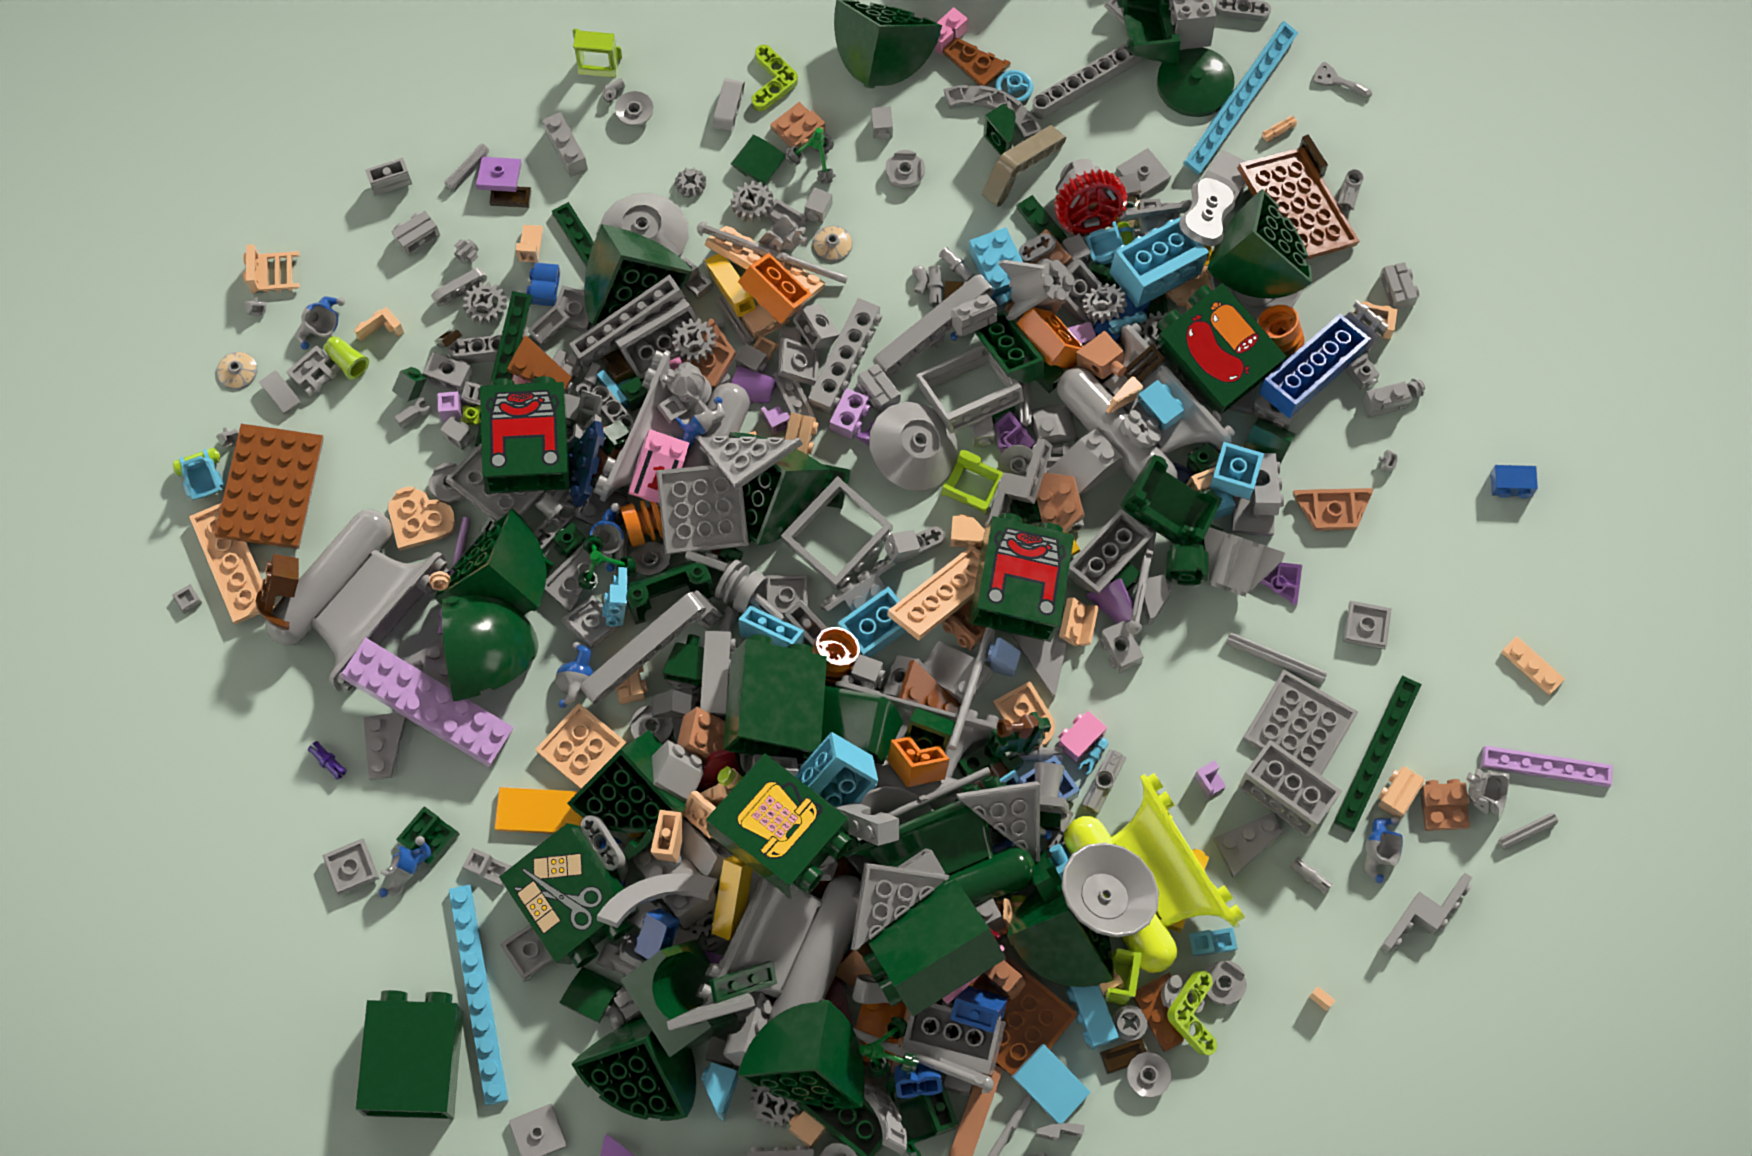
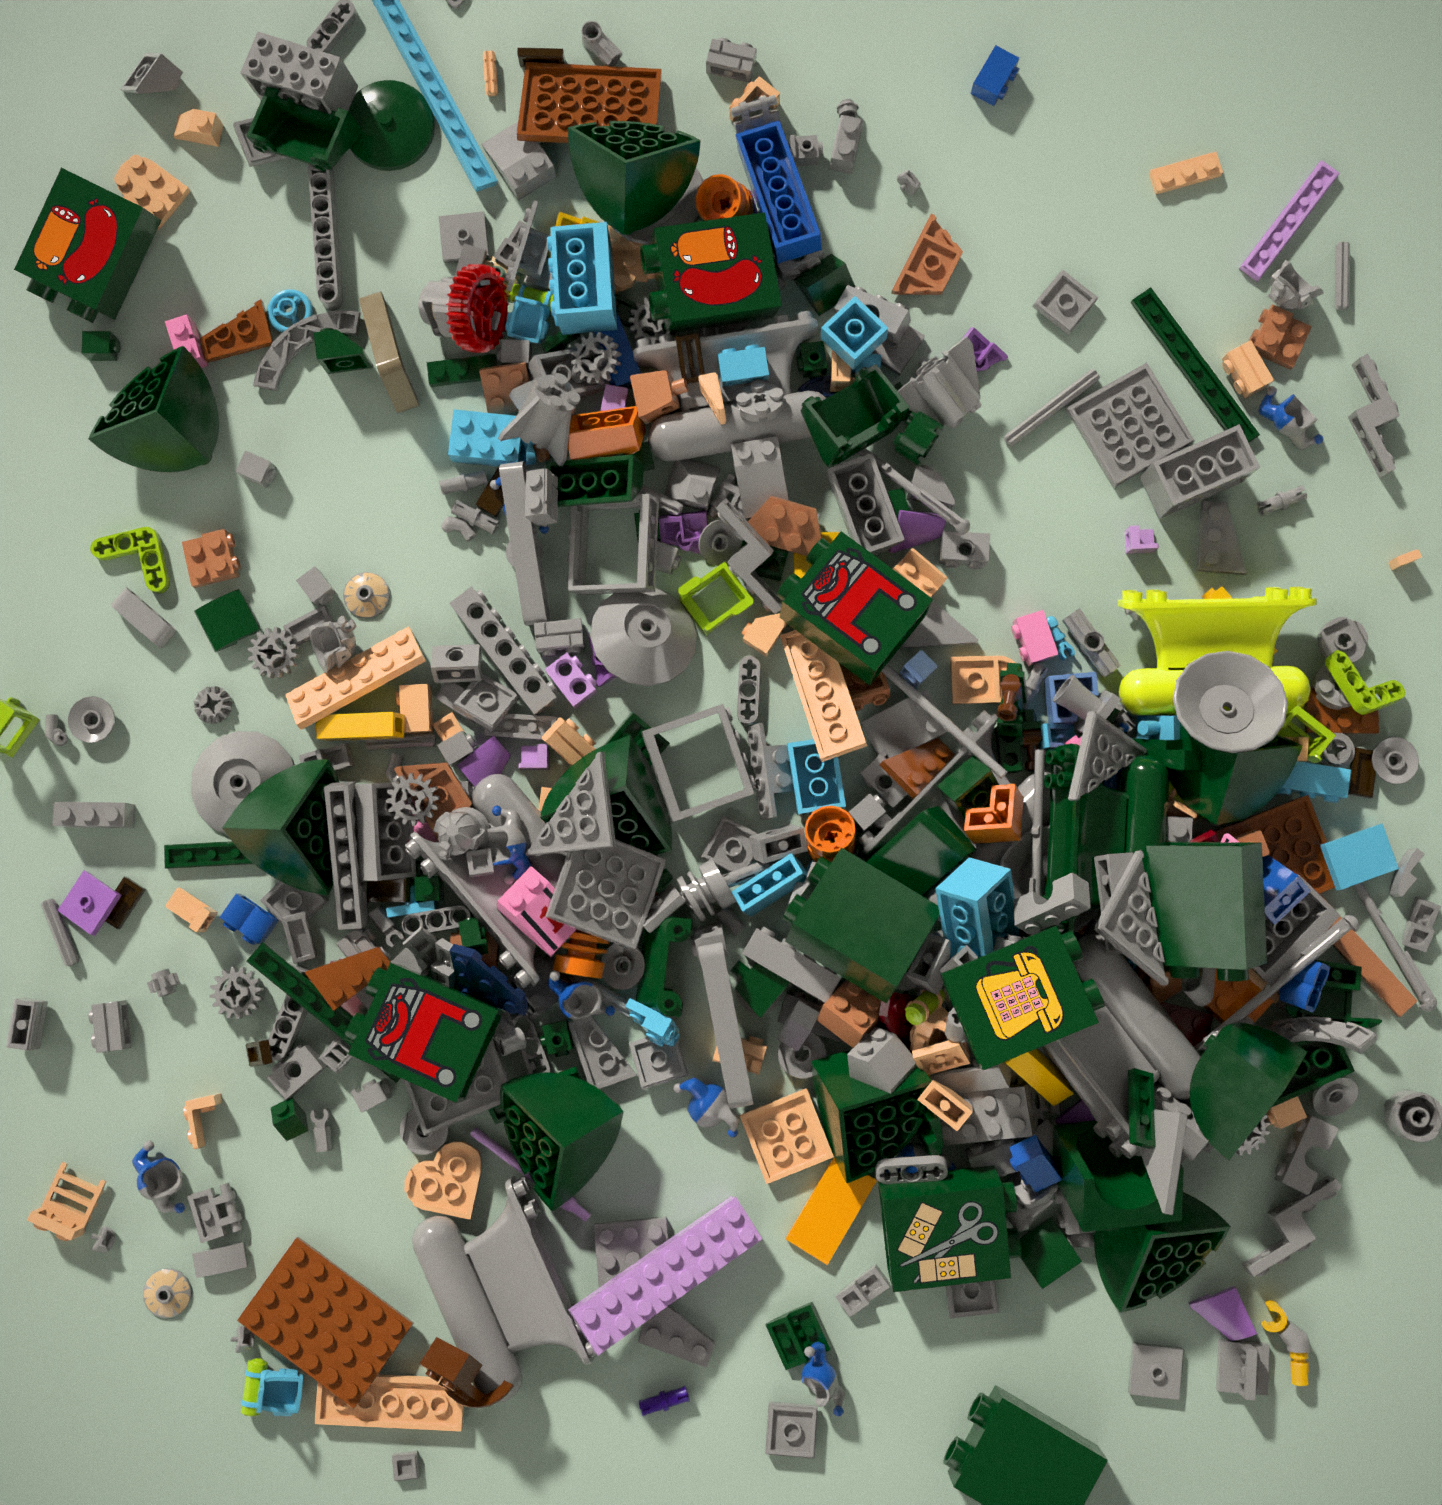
camera: 55 degrees left, 15 degrees up
(346, 357) = (218, 1171): lime plant -> none
(439, 580) = (540, 1198): light nougat plate -> none
(449, 404) = (337, 1088): lavender panel -> none
(458, 286) = (201, 1010): light grey beam -> none
(471, 420) = (360, 1076): lime plate -> none
(478, 995) = (987, 1362): medium azure plate -> none
(484, 644) = (637, 1187): dark green brick -> none
(593, 545) = (585, 1019): dark green plant -> none
(654, 888) = (995, 1149): light grey tile -> none
(703, 228) = (283, 722): light grey bar -> none
(720, 1087) = (1209, 1176): medium azure slope -> none
(774, 288) = (398, 684): orange brick -> none
(822, 144) = (247, 545): plant -> none
(879, 1061) = (1273, 1012): plant -> none
(902, 545) = (749, 705): light grey brick -> none
(905, 179) = (329, 487): light grey plate -> none
(1039, 251) = (501, 391): light grey beam -> none
(1117, 324) = (627, 358): medium azure piece -> none
(1209, 207) = (566, 207): plate -> none
(1213, 942) = (1296, 630): medium azure slope -> none

